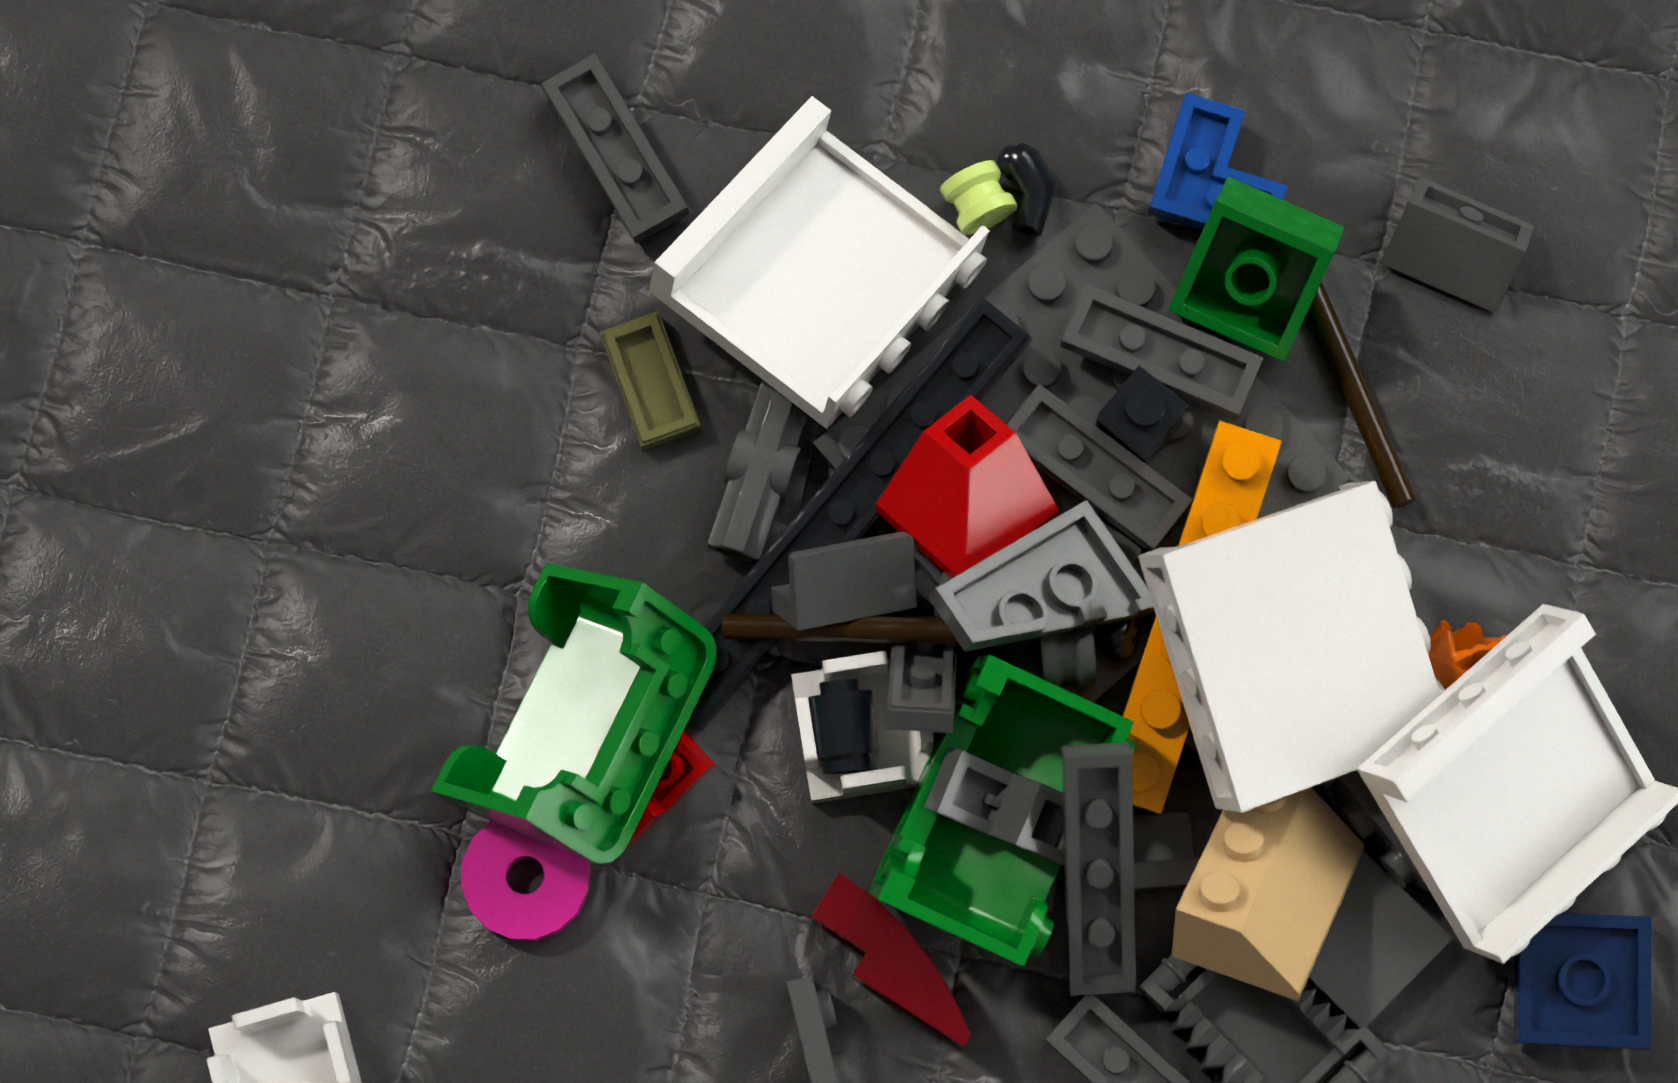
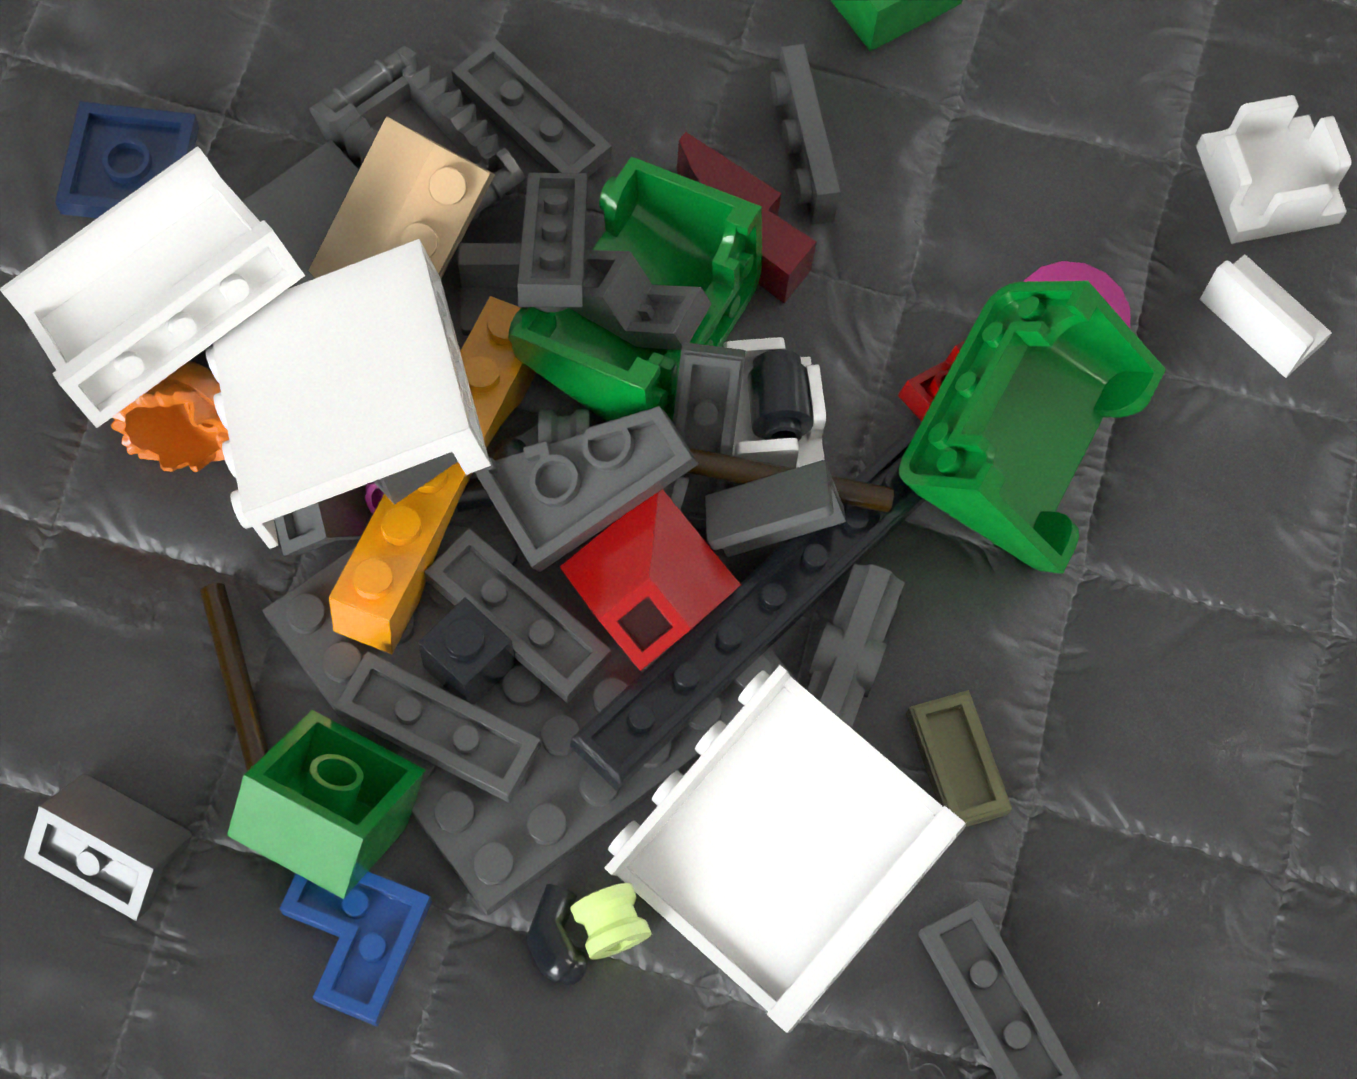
camera: 175 degrees right, 10 degrees down
(308, 895) = (1264, 314): none -> white panel

